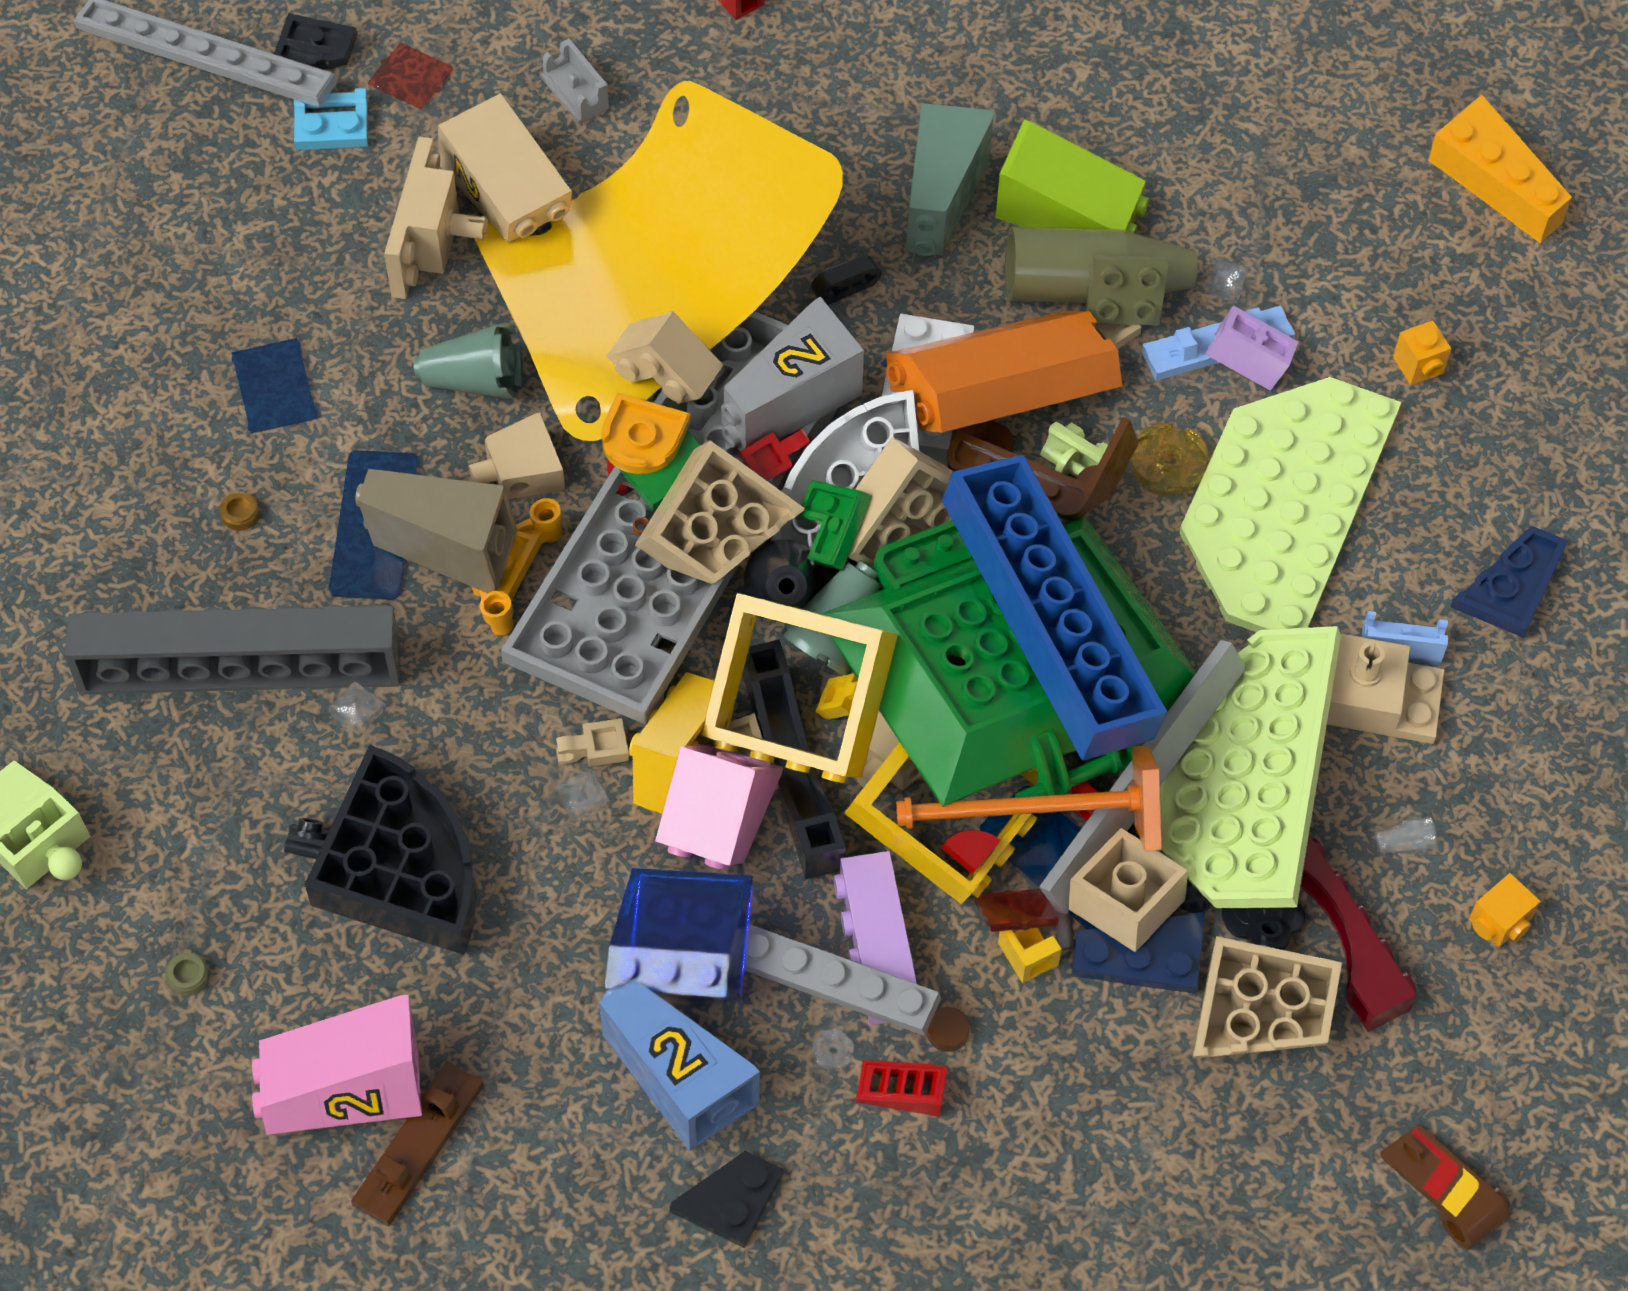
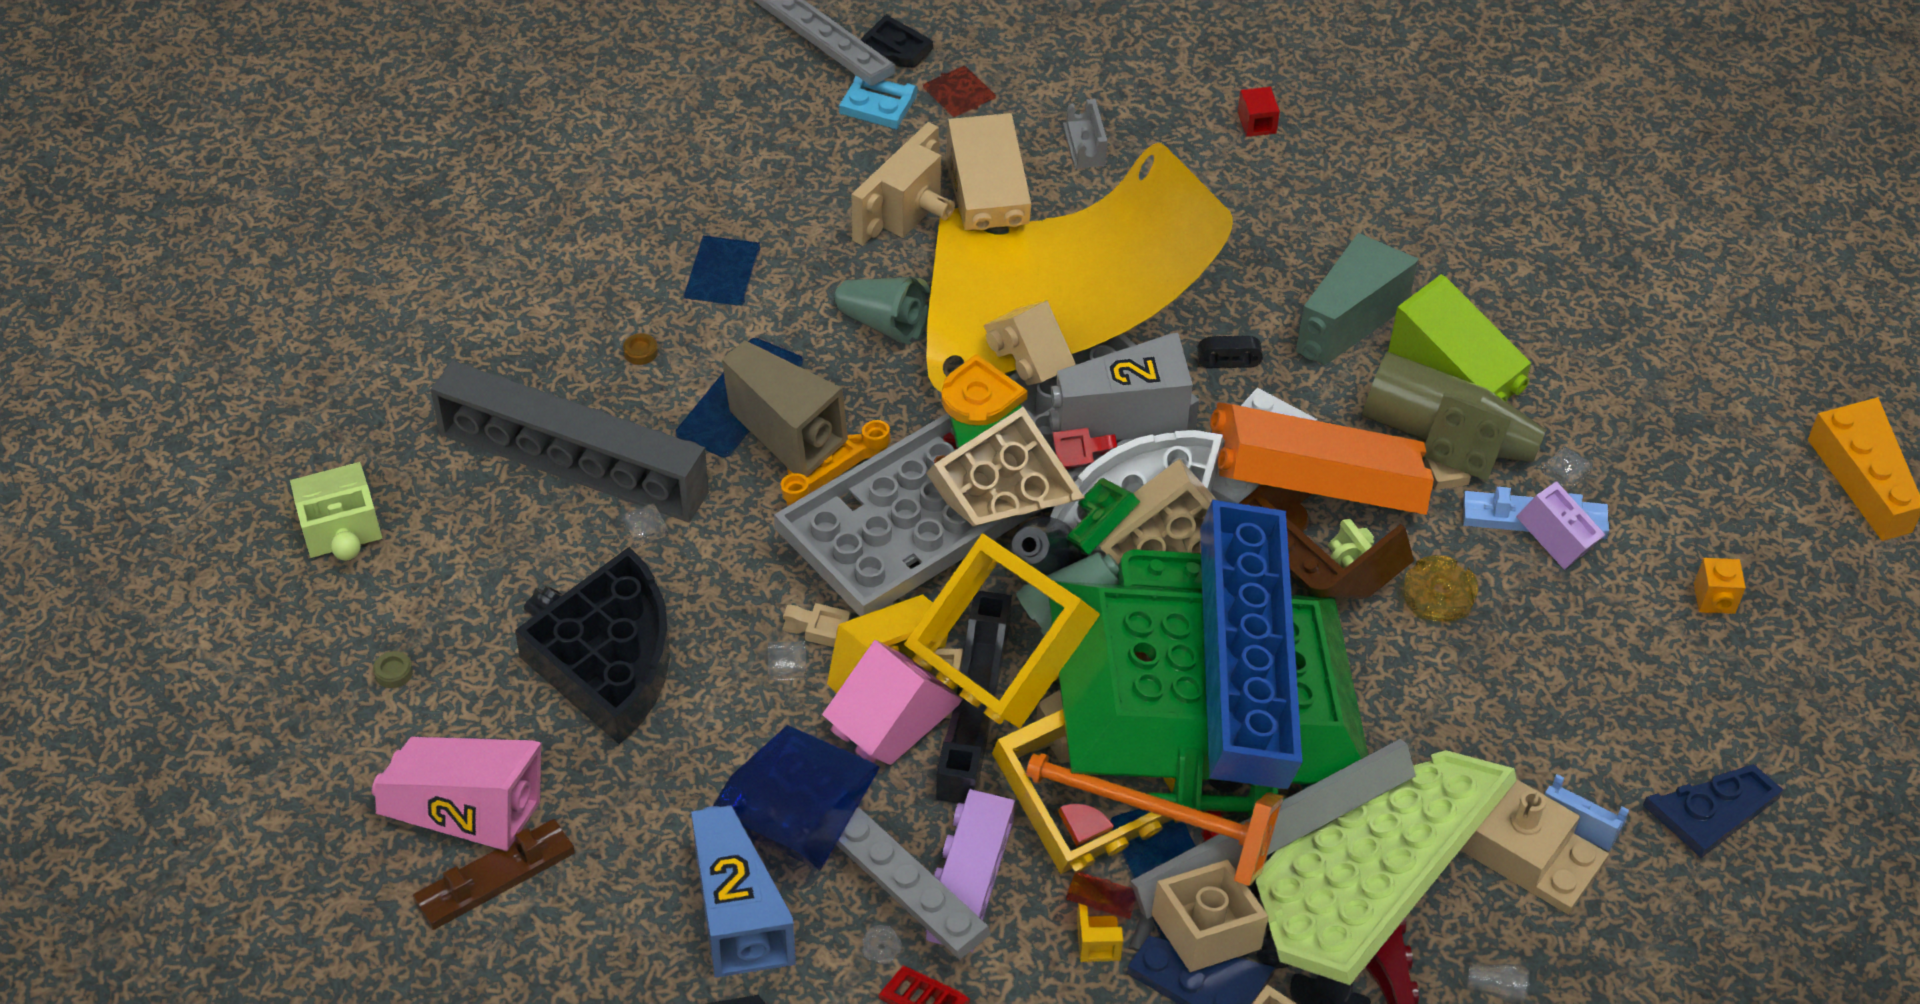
camera: 25 degrees right, 10 degrees down
(521, 460) = (882, 389): tan torso -> none
(948, 1029) = (991, 971): reddish brown tile -> none
(1284, 499) = (1533, 659): yellowish green plate -> none

